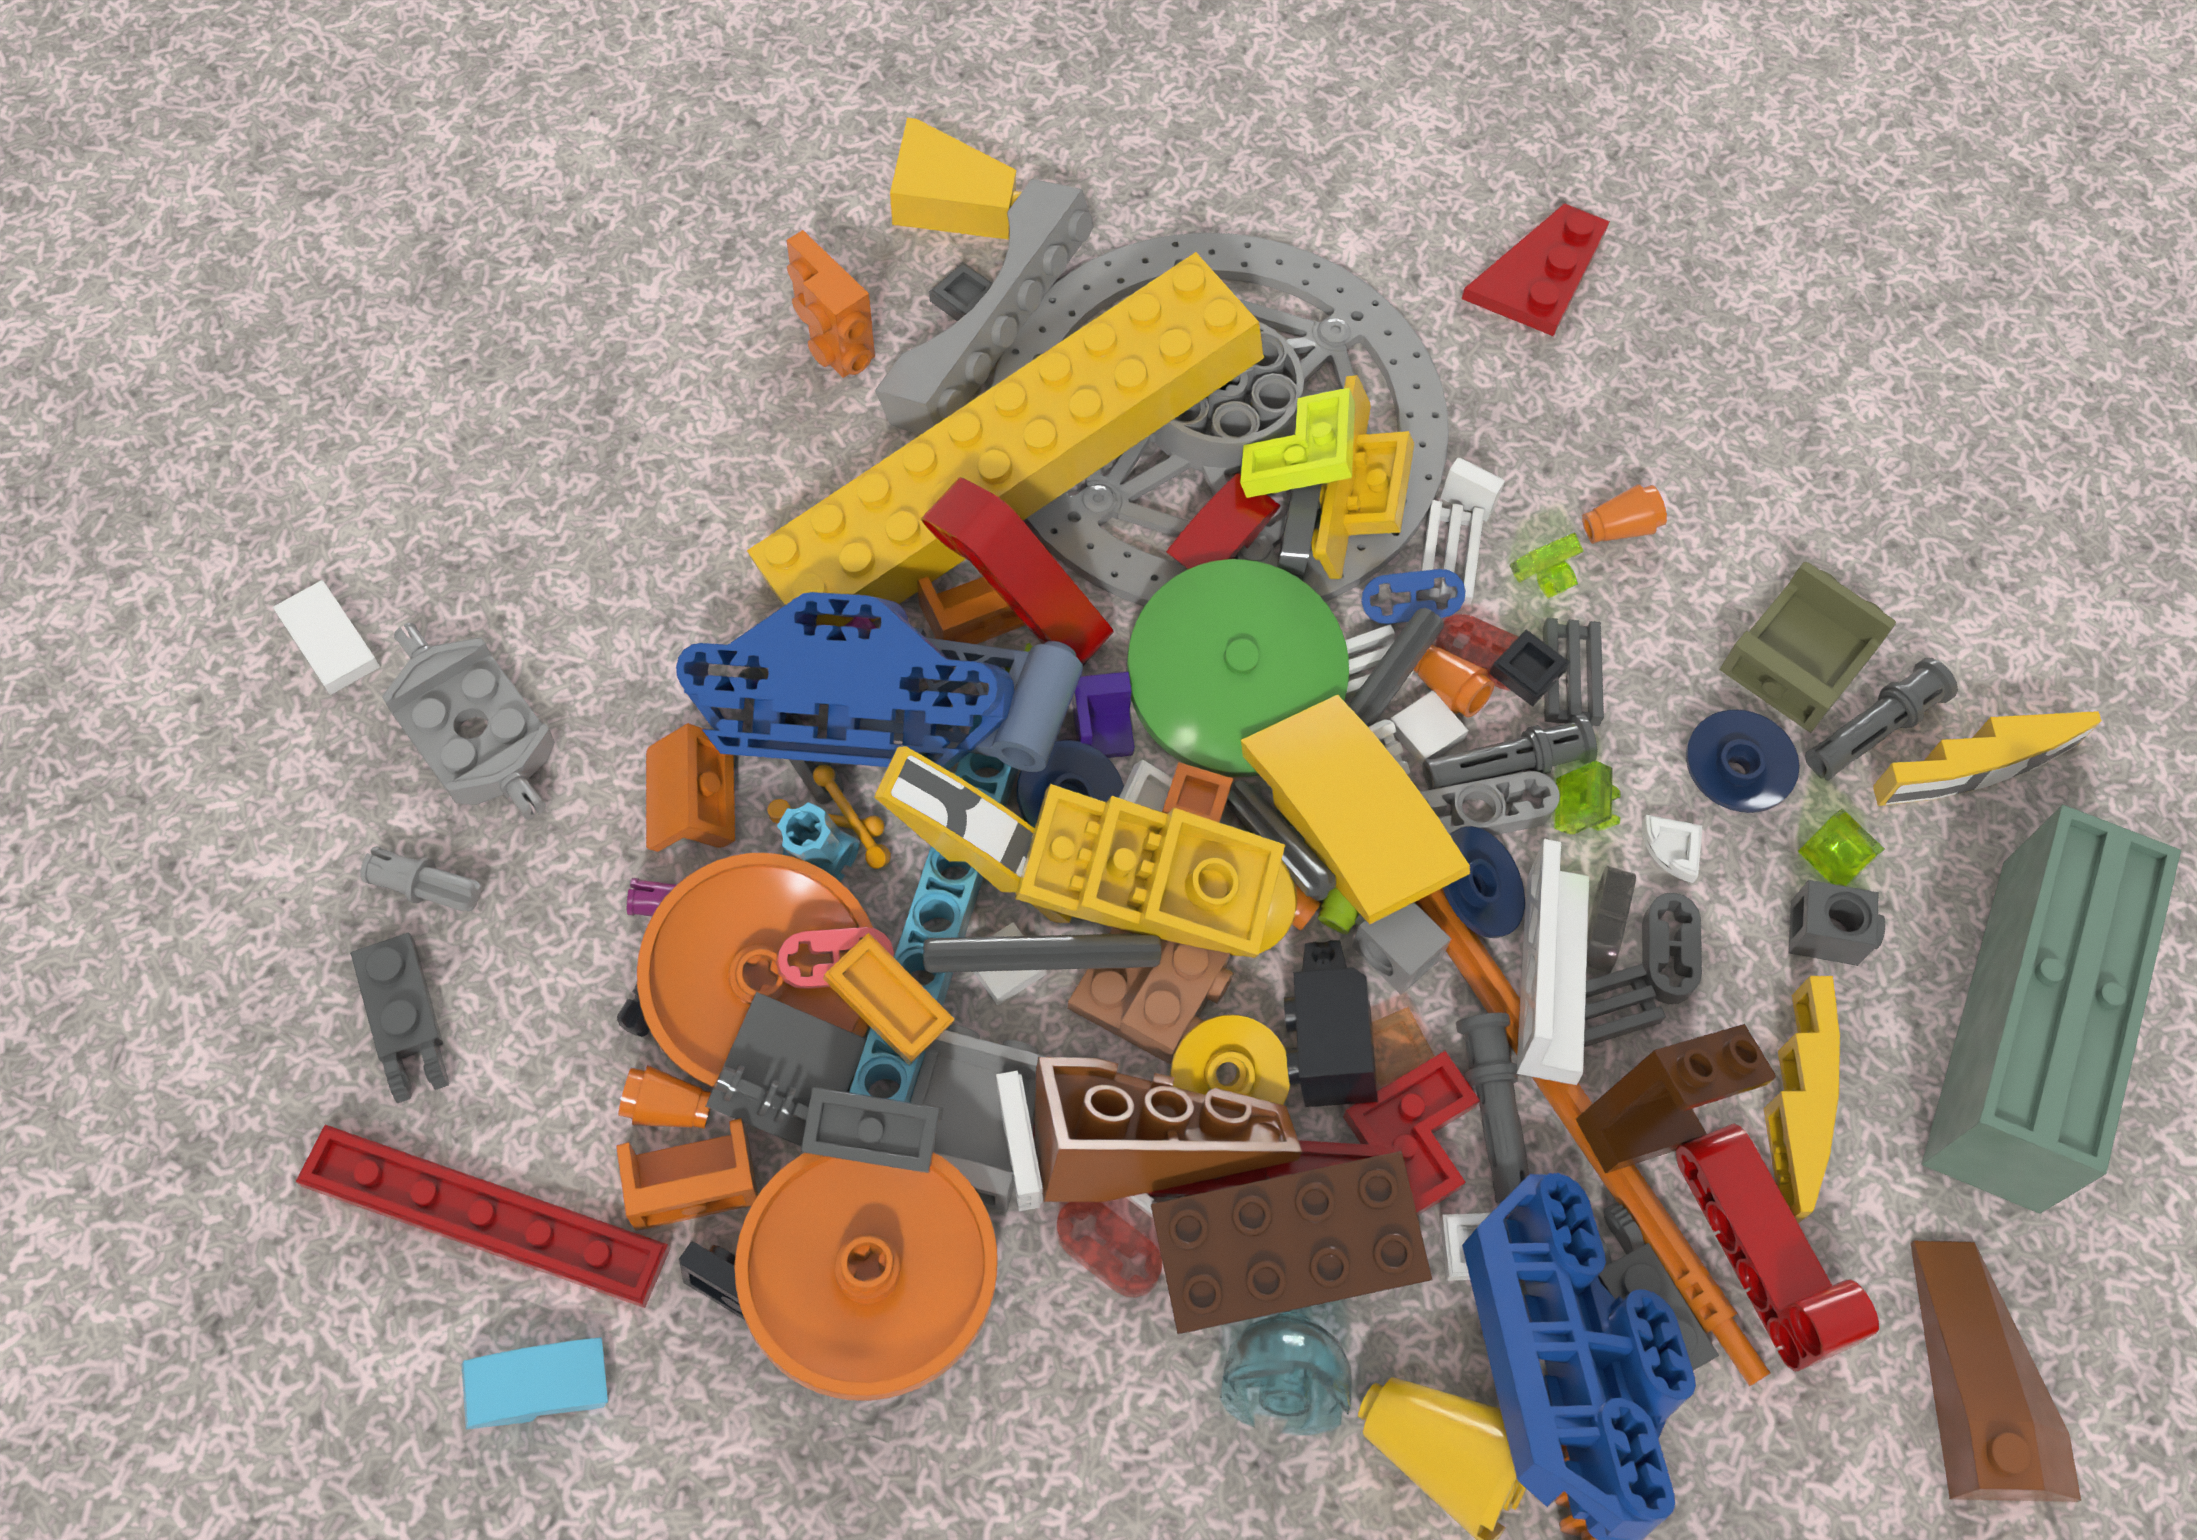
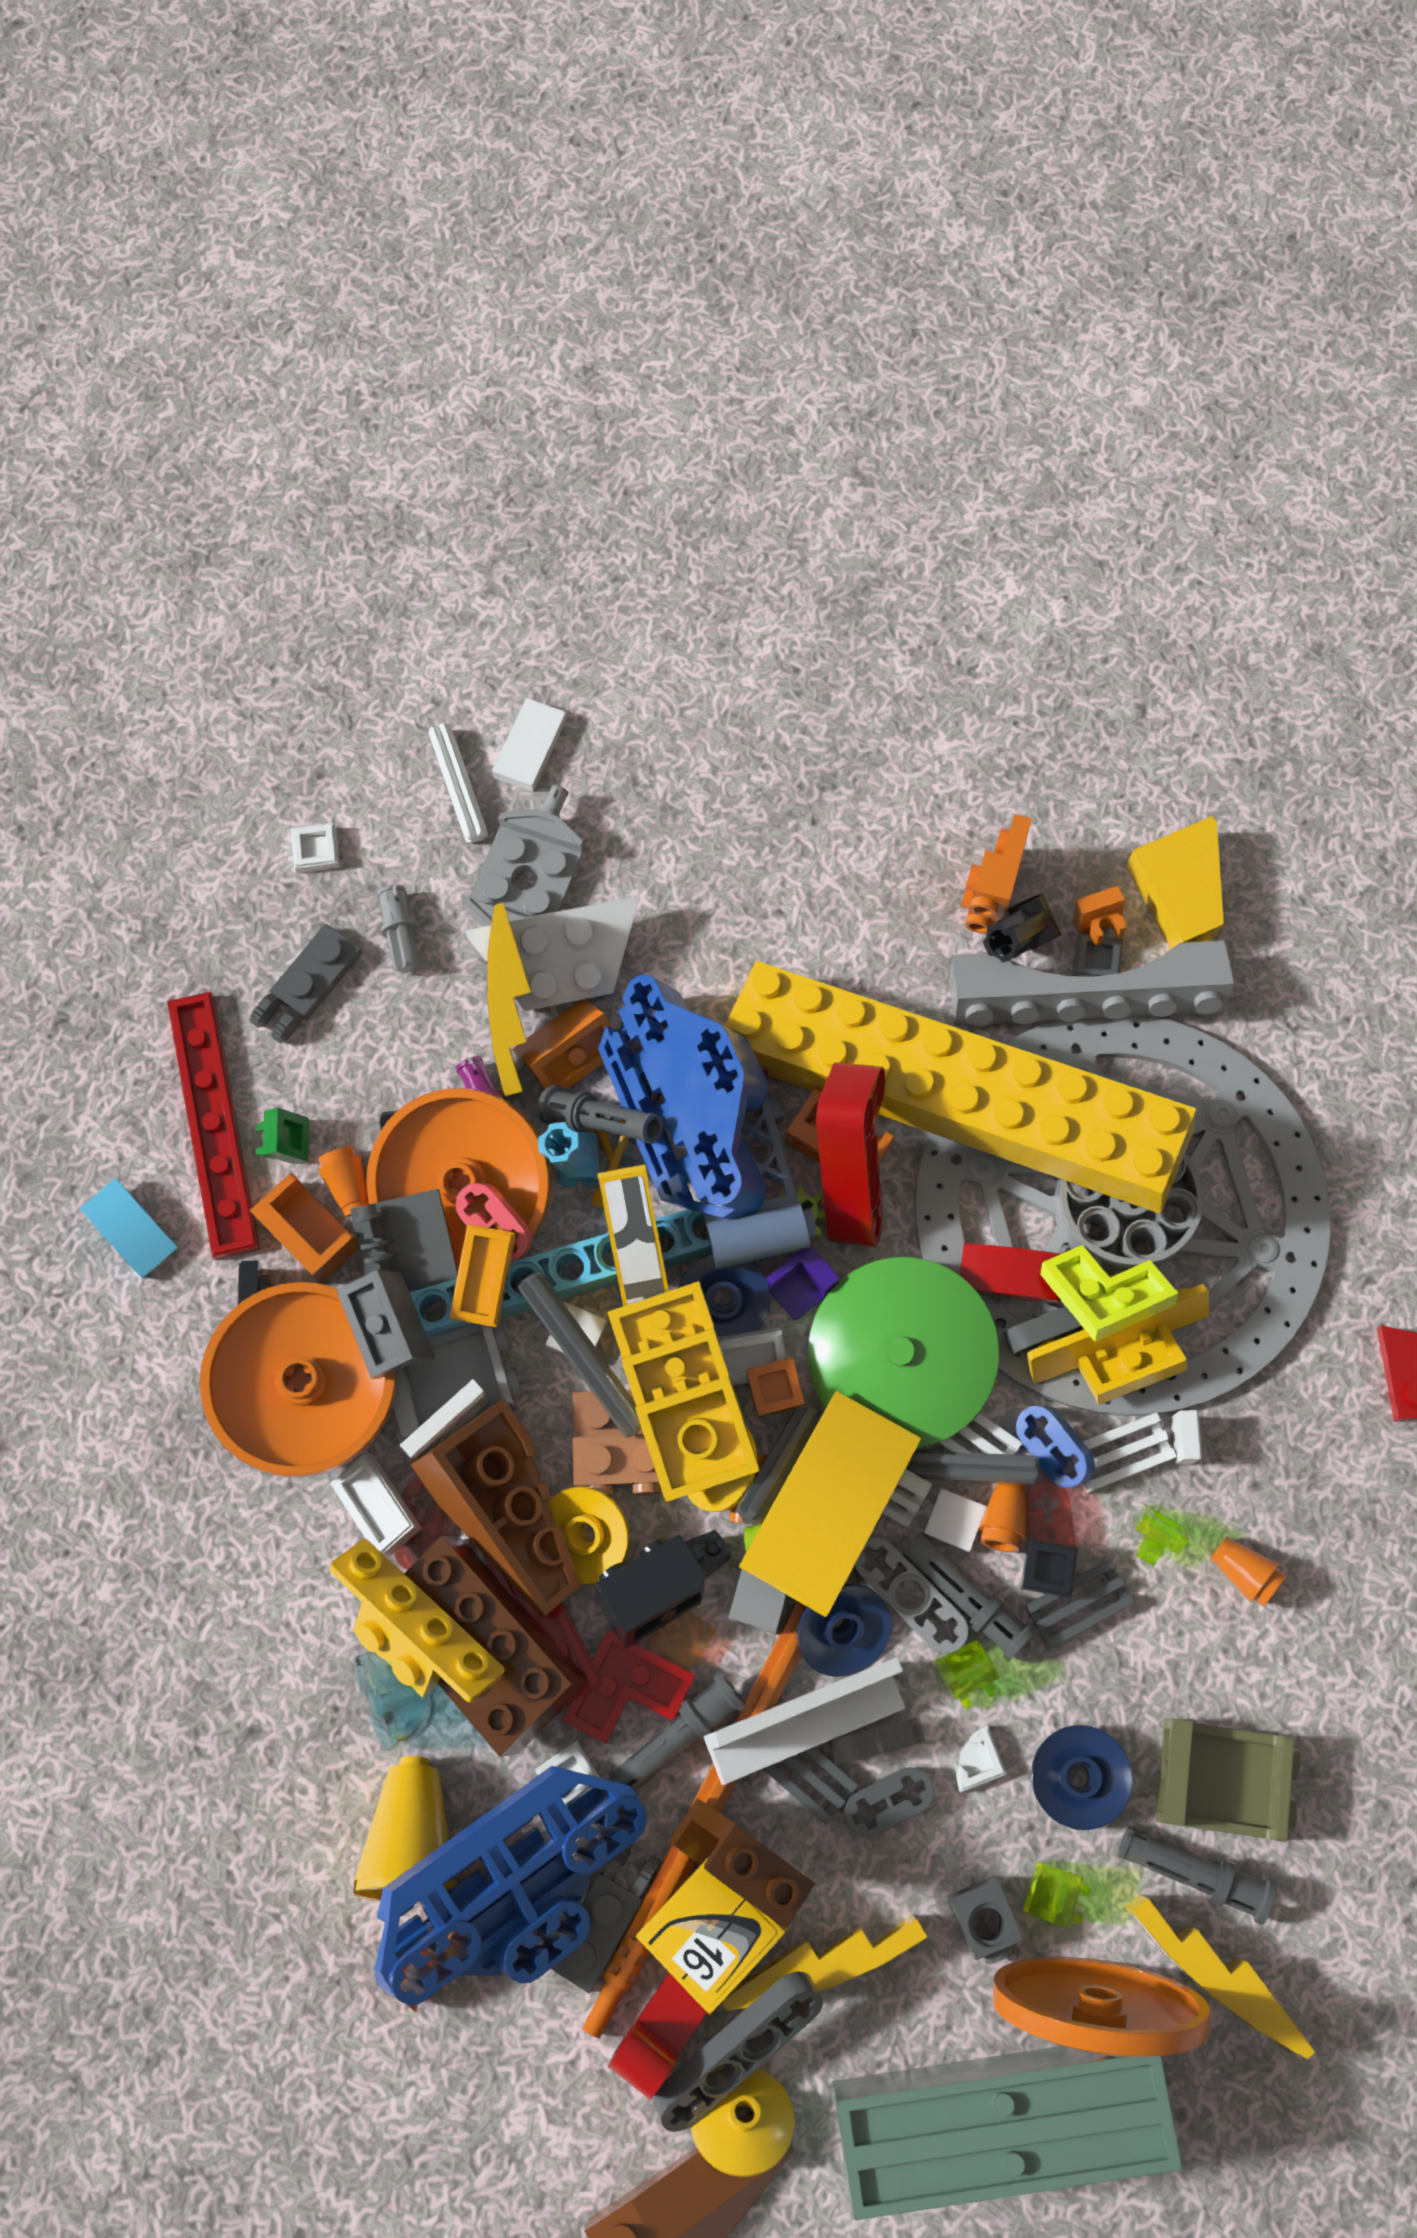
camera: 65 degrees right, 10 degrees up
(251, 916) = (315, 848): none -> white tile
(306, 728) = (458, 783): none -> white axle
(563, 1136) = (284, 1136): none -> green tile
(579, 789) = (504, 982): none -> yellow slope
(584, 733) = (568, 951): none -> white wing
(820, 765) = (638, 1124): none -> dark grey pin
(896, 320) = (1023, 929): none -> black piece
(926, 260) = (1100, 912): none -> orange tile
(1059, 1279) = (375, 1505): none -> white tile
(1238, 1292) = (411, 1628): none -> yellow bracket
(1729, 1175) = (709, 1937): none -> slope
(1862, 1216) = (693, 2092): none -> dark grey beam
(1922, 1294) = (752, 2146): none -> yellow dish
(1988, 843) = (1101, 2006): none -> orange dish

